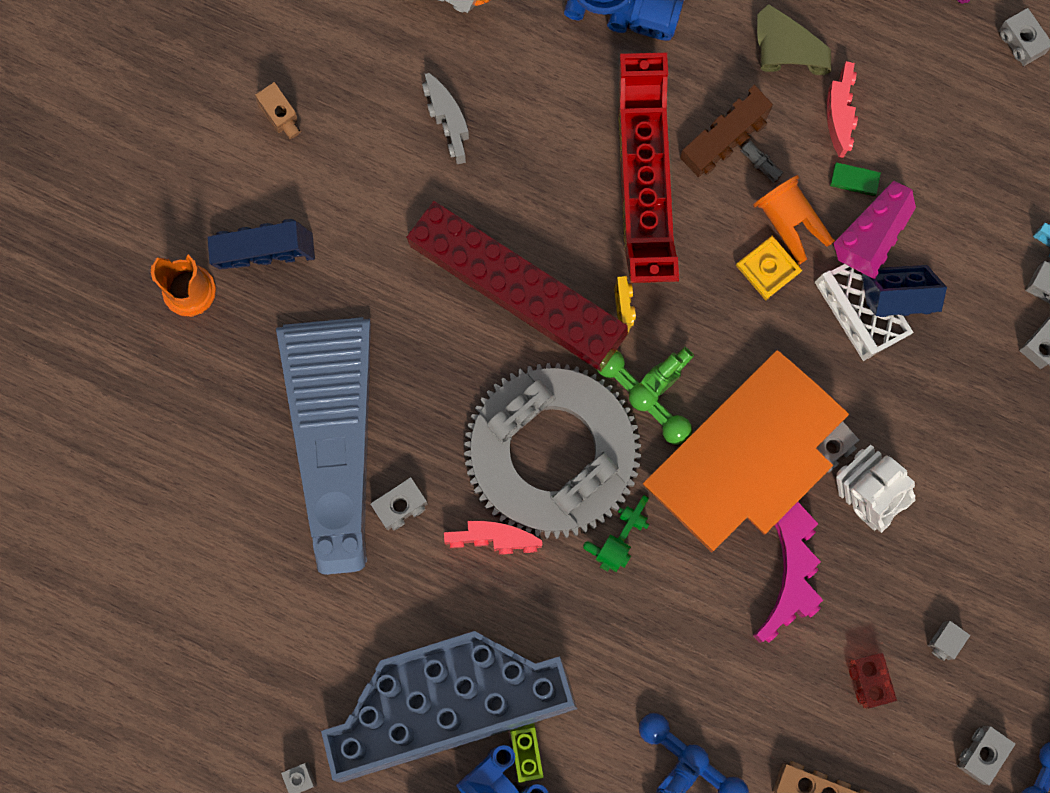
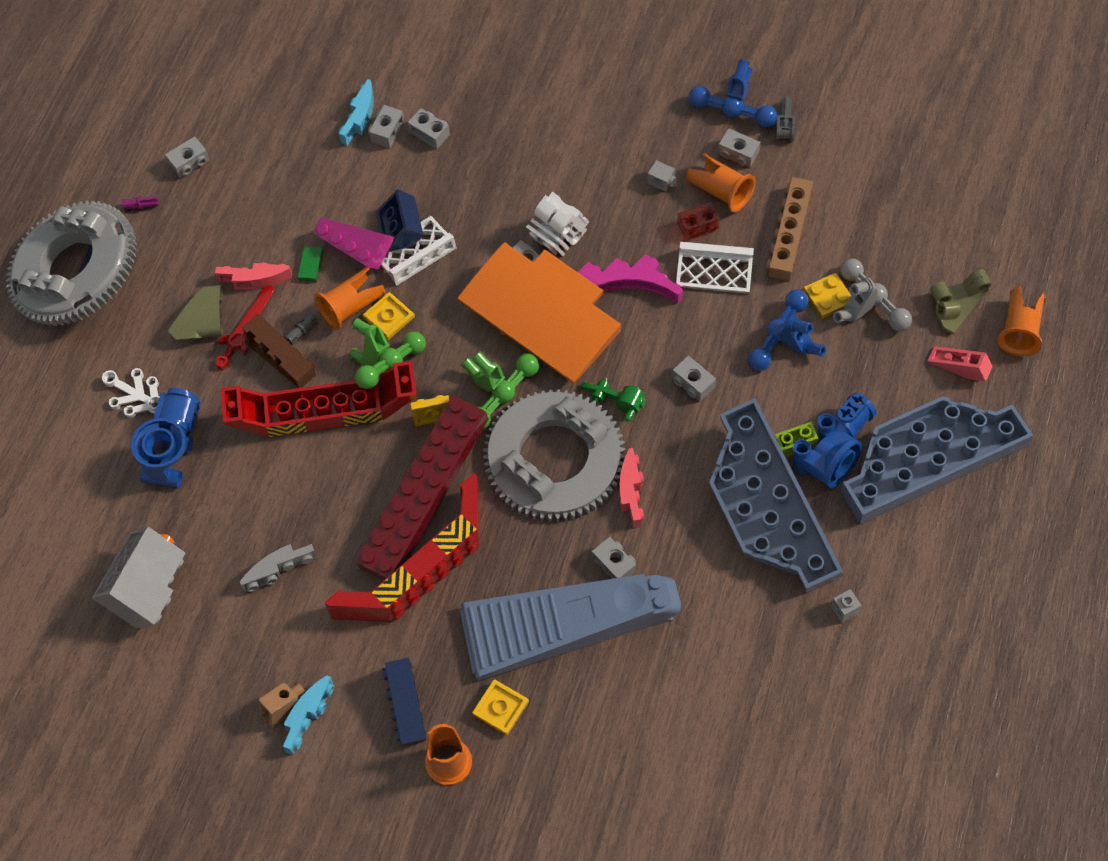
camera: 90 degrees left, 15 degrees down
(239, 352) = (500, 707): none -> yellow plate
(272, 142) = (308, 706): none -> medium azure slope
(419, 284) = (420, 571): none -> red slope
(649, 632) = (691, 369): none -> light grey brick
(706, 246) = (377, 355): none -> bright green connector
(779, 101) = (237, 338): none -> red sword
(819, 696) = (713, 253): none -> white fence
(923, 726) = (723, 183): none -> orange piece

